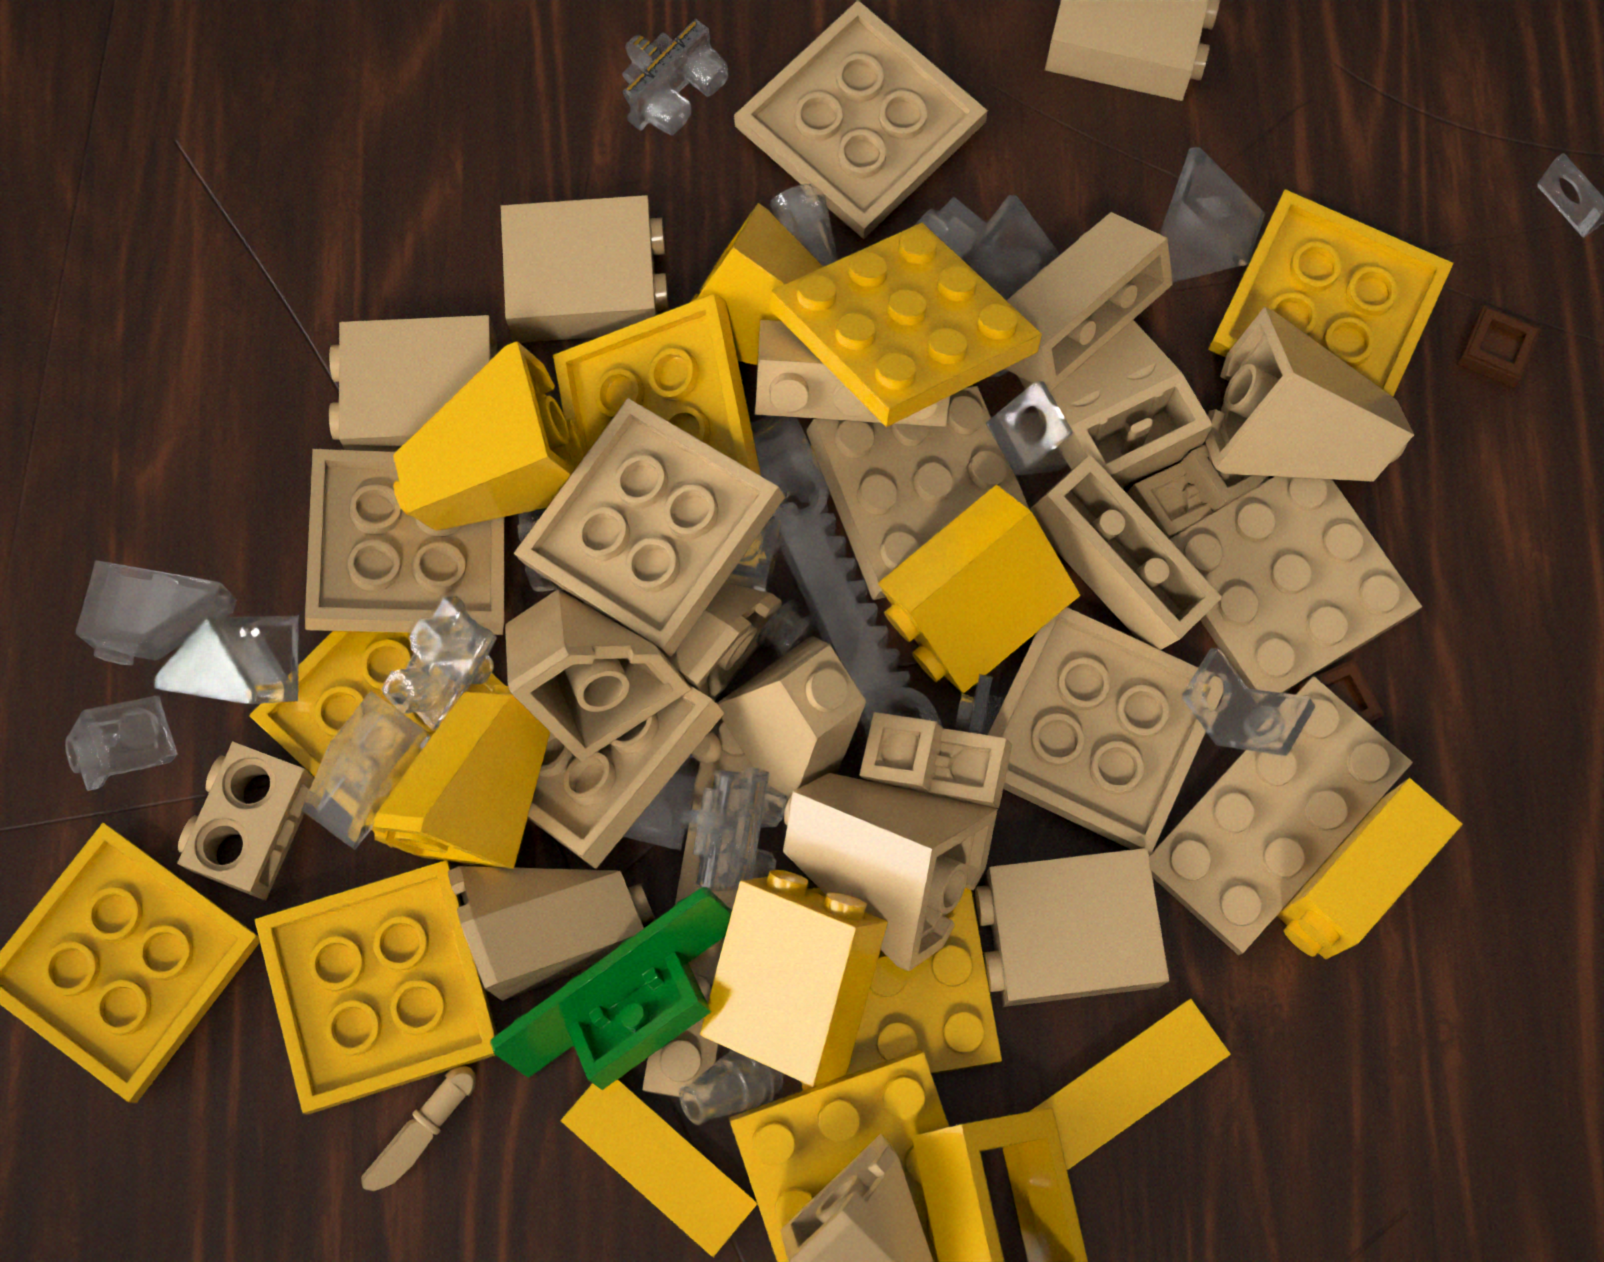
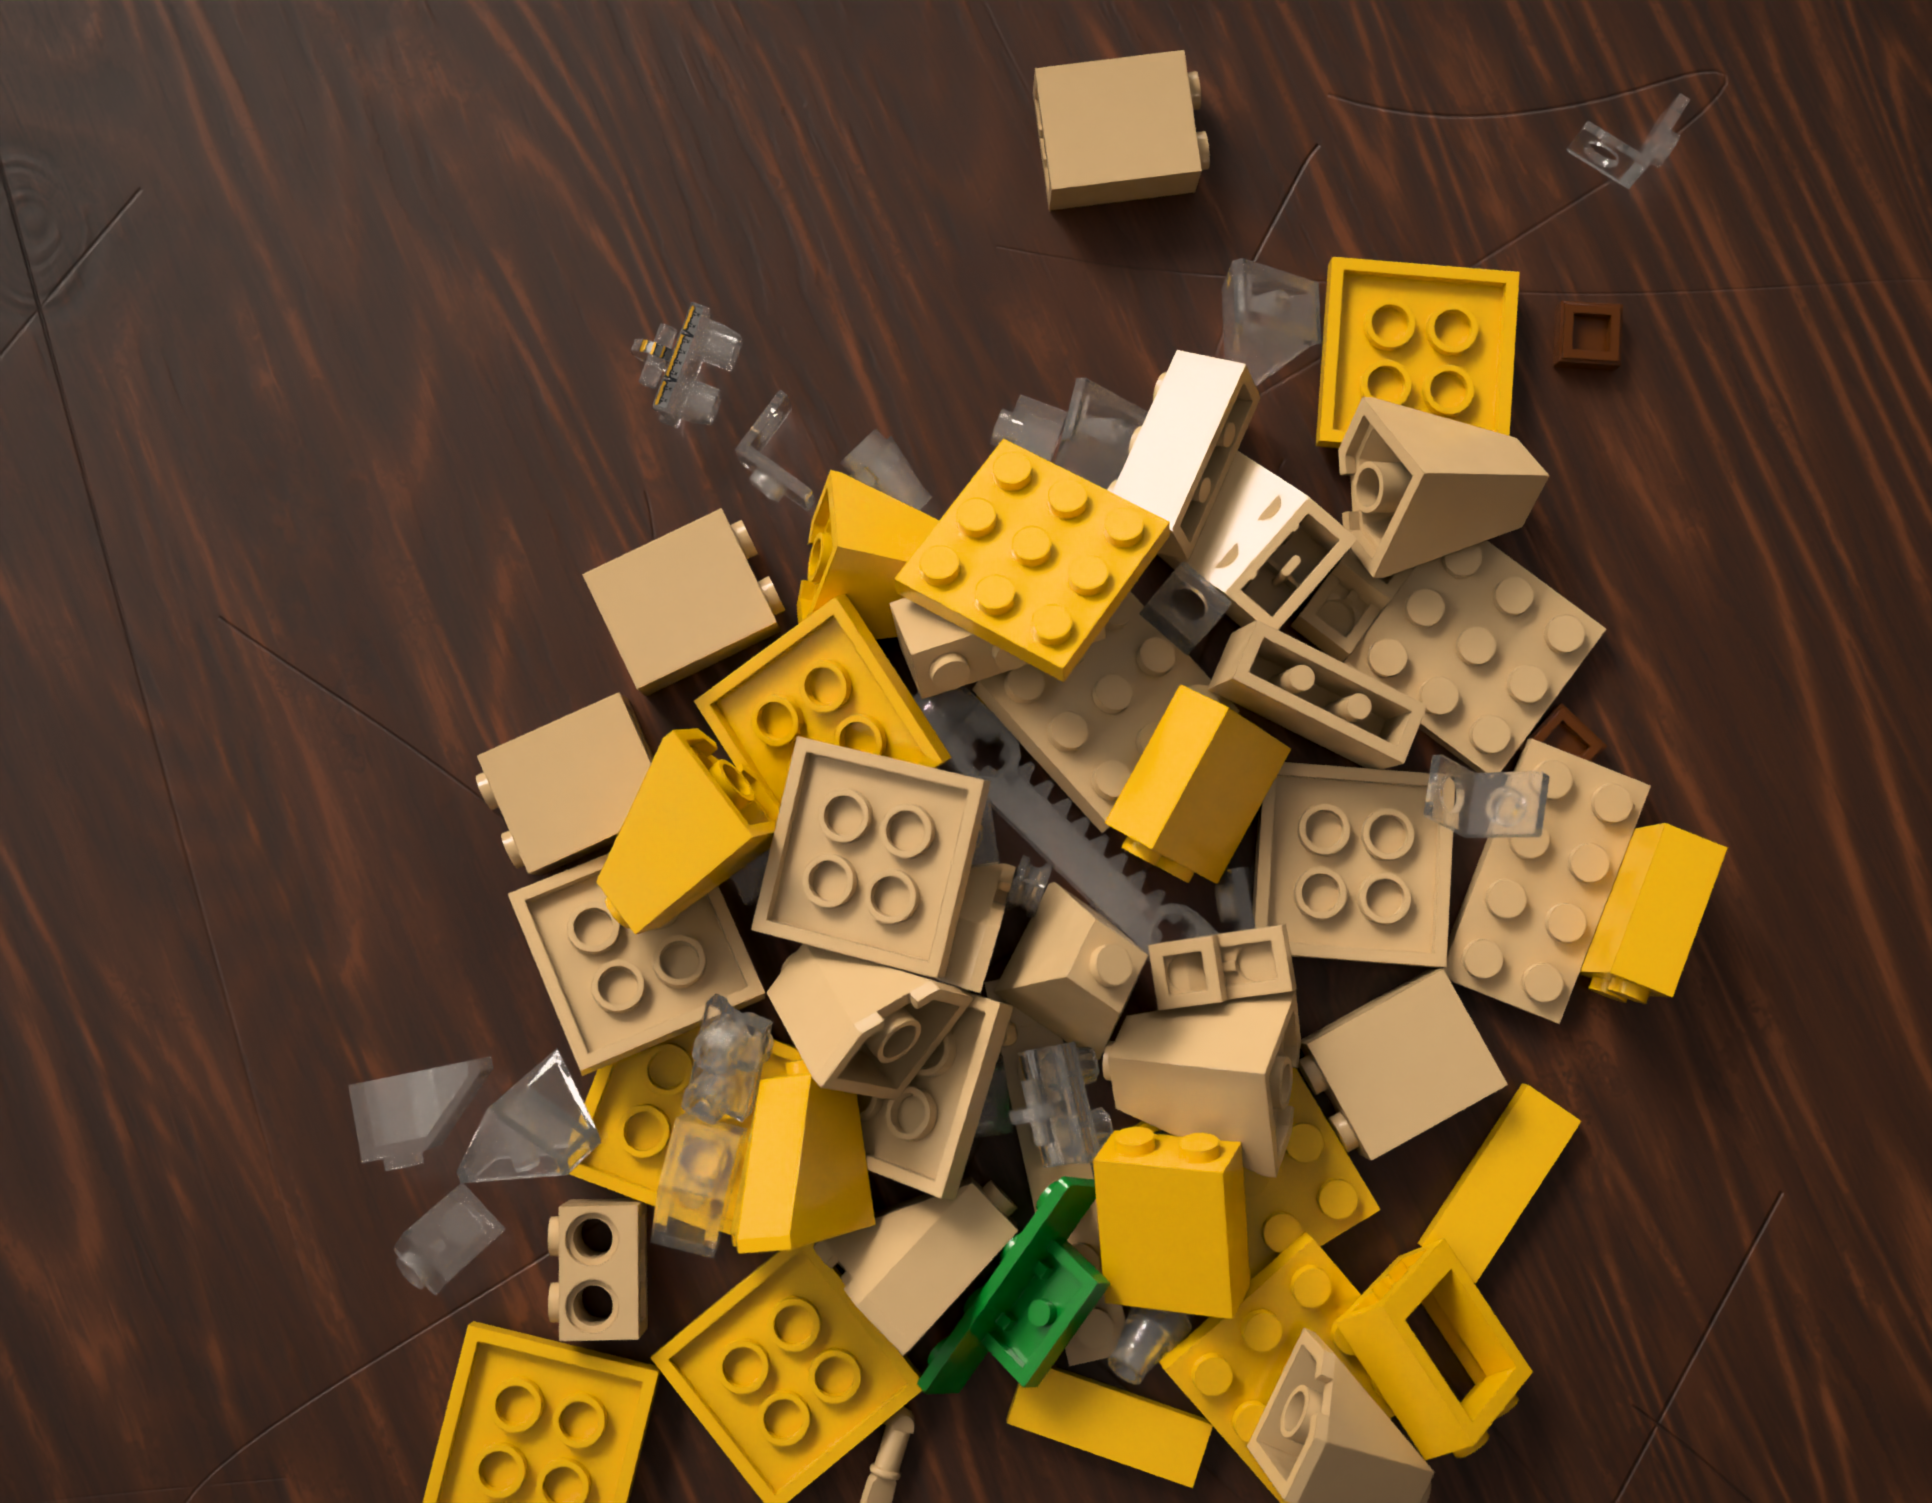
camera: 25 degrees left, 10 degrees up
(700, 188) = (766, 474): none -> clear bracket
(861, 118) = (891, 336): tan plate -> none

